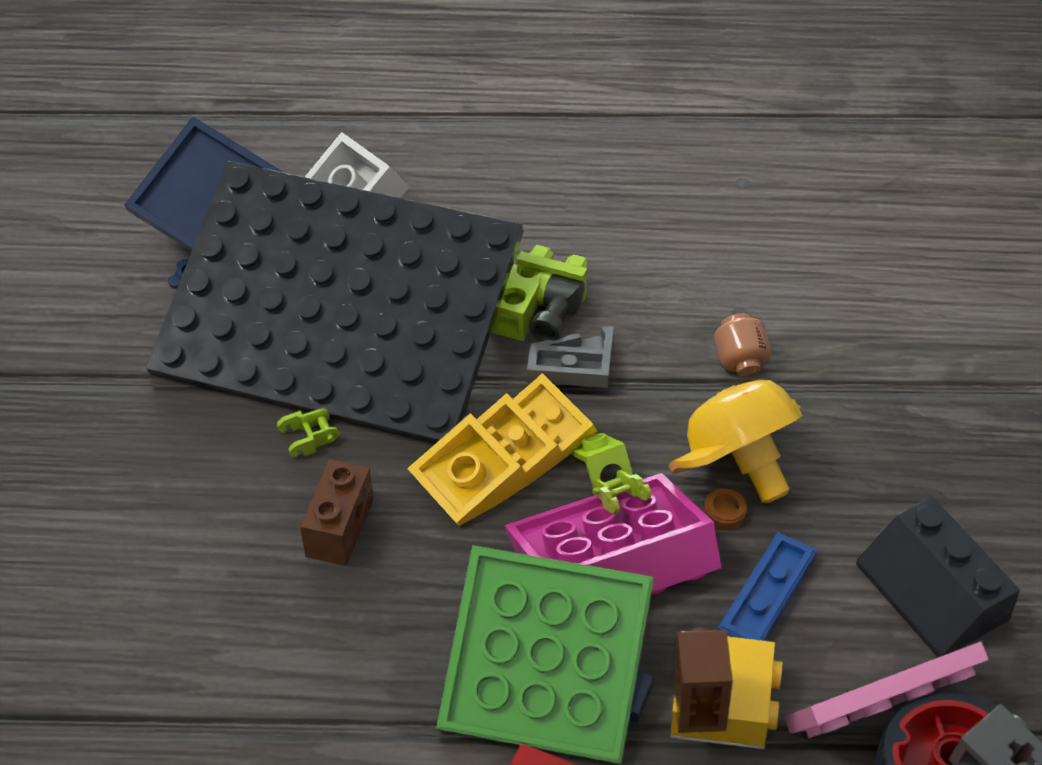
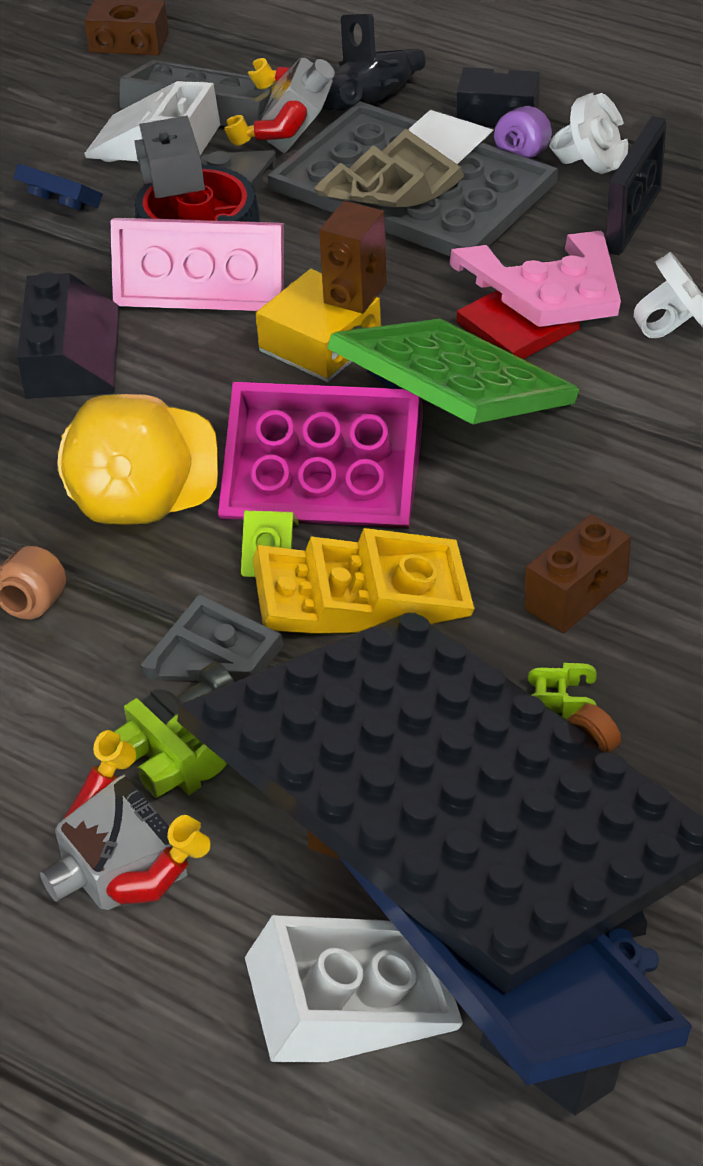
camera: 150 degrees left, 5 degrees down
(268, 399) = (598, 726): none -> dark orange tile
(529, 201) = (117, 840): none -> torso
(631, 484) = (298, 480): lime piece -> none
(768, 589) = (212, 390): blue tile -> none

